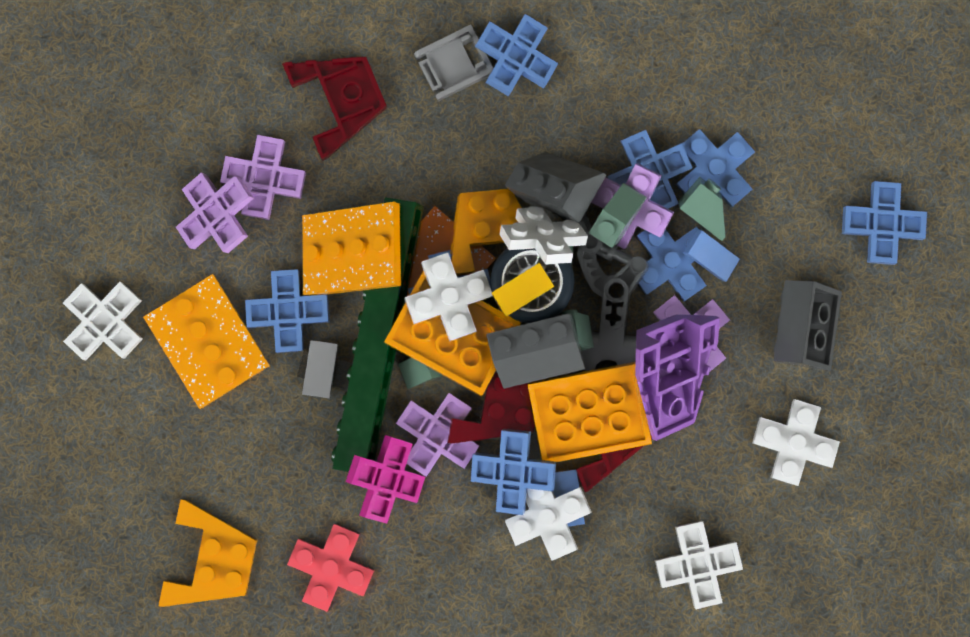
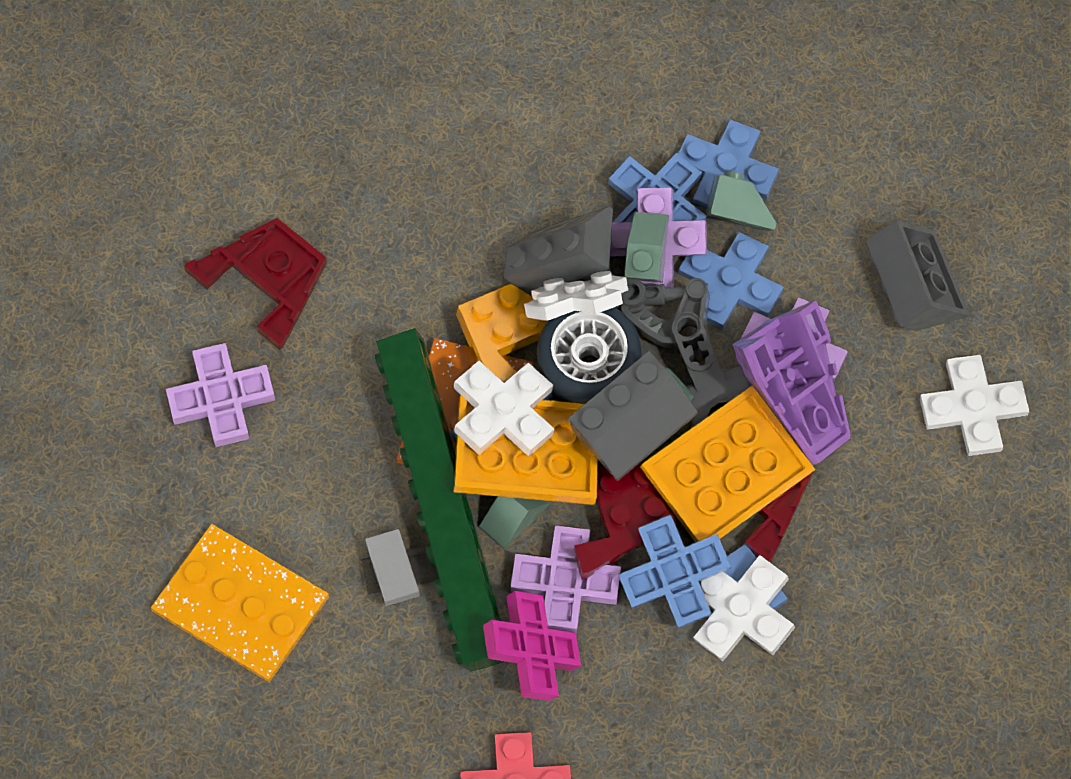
camera: 25 degrees left, 20 degrees down
(102, 321) = (103, 634): white plate -> none
(214, 212) = (183, 453): lavender plate -> none
(287, 311) = (320, 524): medium blue plate -> none
(351, 249) = (364, 417): light orange plate -> none
(450, 65) = (375, 191): light grey container -> none
(516, 55) = (446, 145): medium blue plate -> none
(522, 289) = (583, 358): yellow tile -> none
(698, 564) = (940, 582): white plate -> none
(711, 255) = (772, 251): medium blue tile -> none
(884, 222) = (939, 140): medium blue plate -> none

